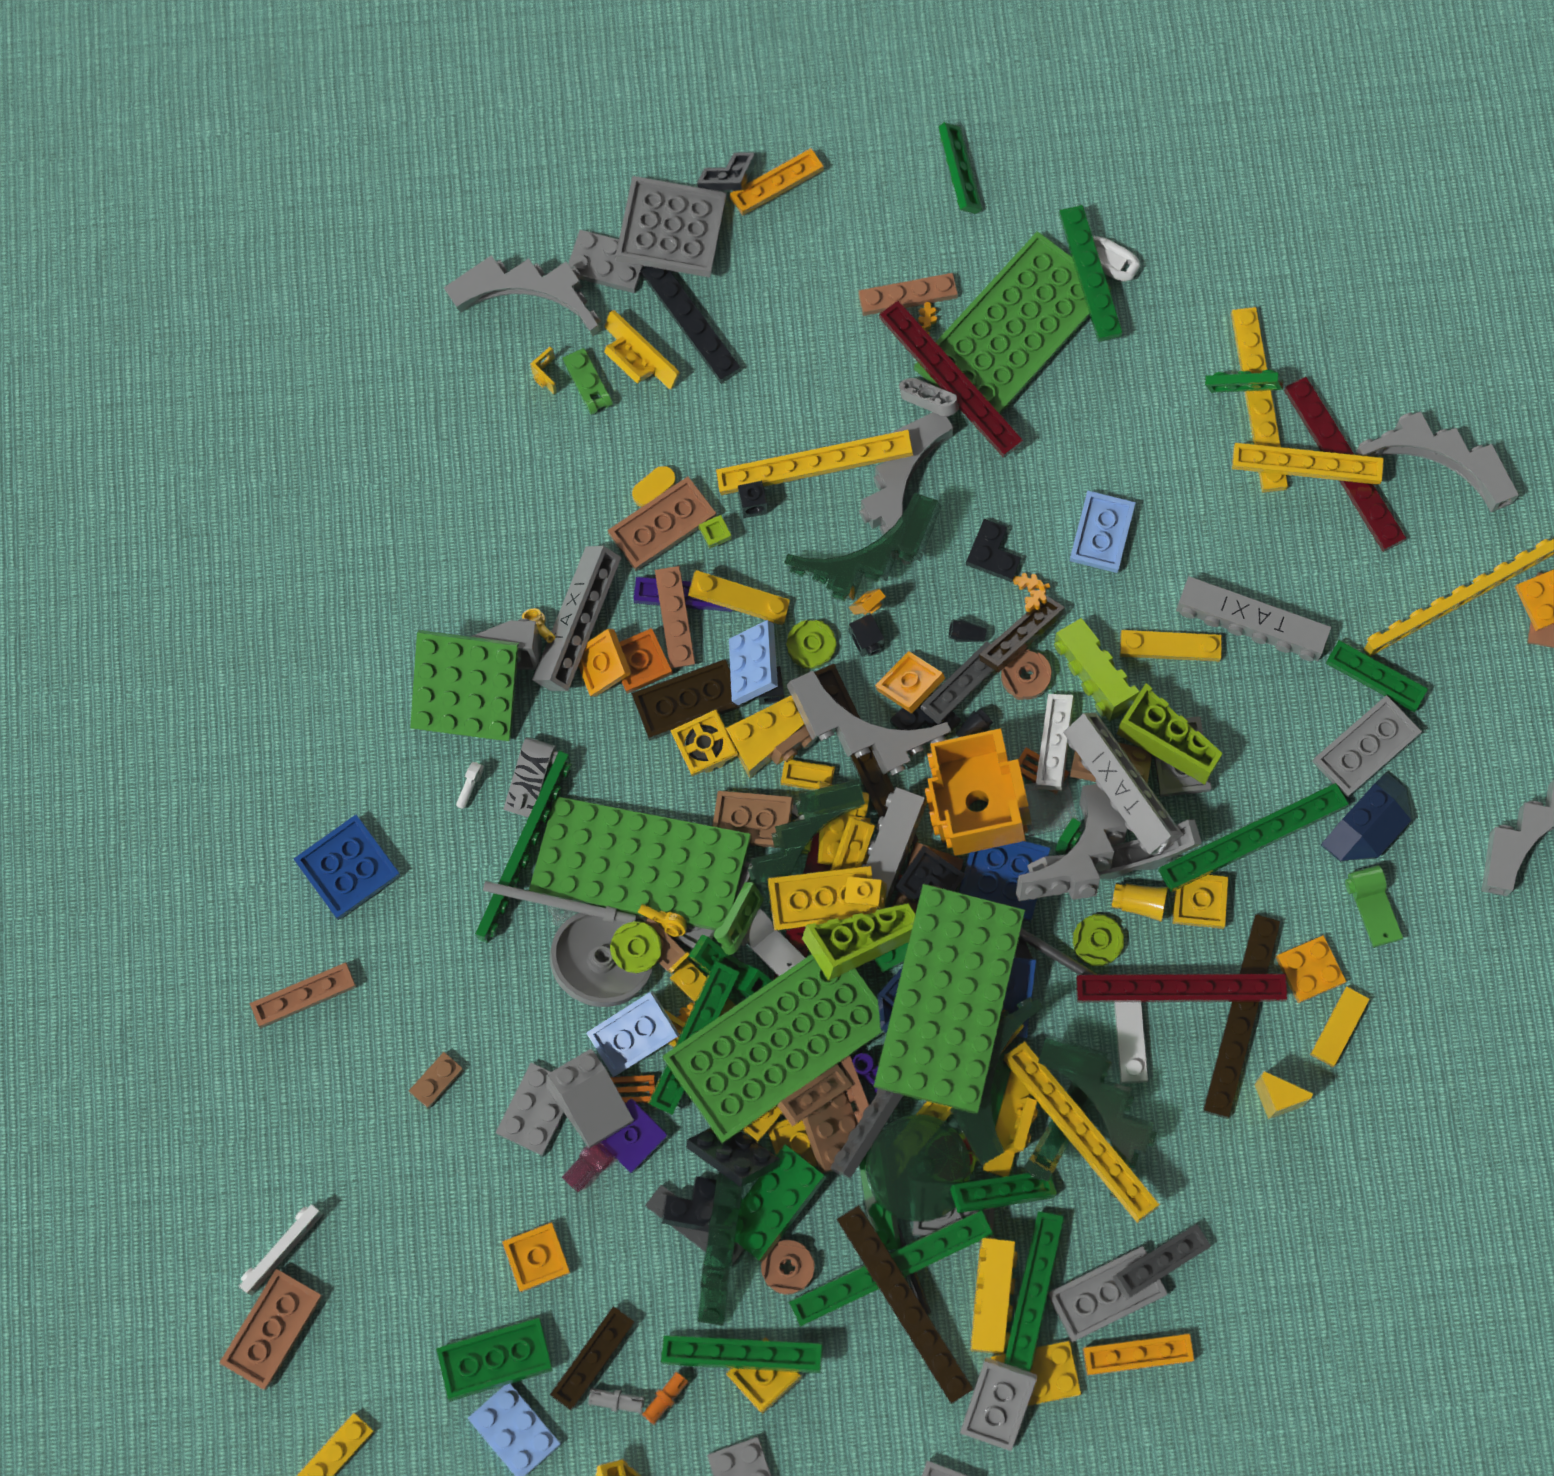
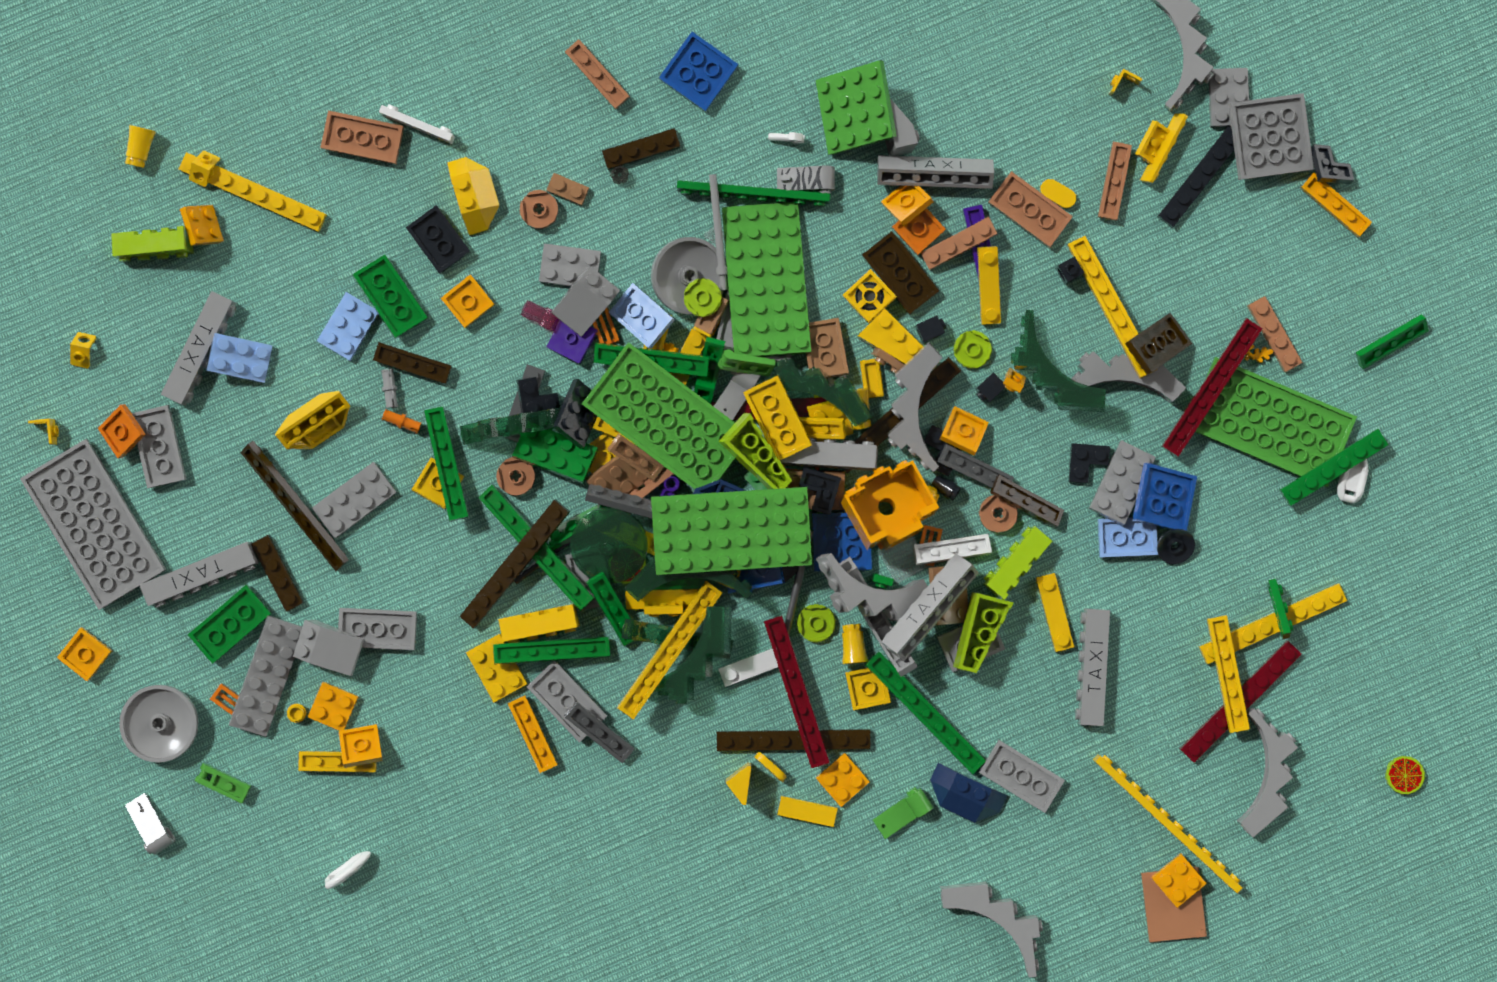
camera: 70 degrees right, 15 degrees up
(398, 1203) = (474, 194): none -> yellow wedge
(418, 970) = (641, 148): none -> dark brown plate
(438, 1001) = (619, 169): none -> clear smoke plate
(441, 1112) = (530, 203): none -> nougat plate
(441, 1270) = (438, 239): none -> black plate
(537, 616) = (925, 142): yellow plate -> none
(587, 380) = (1126, 115): bright green plate -> none
(661, 416) = (1114, 181): none -> nougat plate
(671, 922) = (727, 318): yellow plate -> none
(715, 531) = (1035, 251): lime tile -> none
(753, 662) = (940, 311): light blue plate -> none
(866, 892) = (790, 448): yellow bracket -> none
(878, 420) = (1158, 343): none -> dark brown plate
(941, 402) = (1187, 381): light grey beam -> none
(966, 631) = (1017, 459): black cone -> none
(998, 1404) = (467, 648): light grey plate -> none
(1034, 517) = (1120, 483): none -> light grey plate
(1035, 595) = (1070, 497): light orange animal -> none
(1067, 472) = (1164, 497): none -> blue plate
(1138, 476) = (1180, 551): none -> black dish
(1269, 1054) = (773, 769): none -> yellow tile
(1376, 676) = (1078, 769): green plate -> none
(1486, 305) = (1404, 774): none -> tile

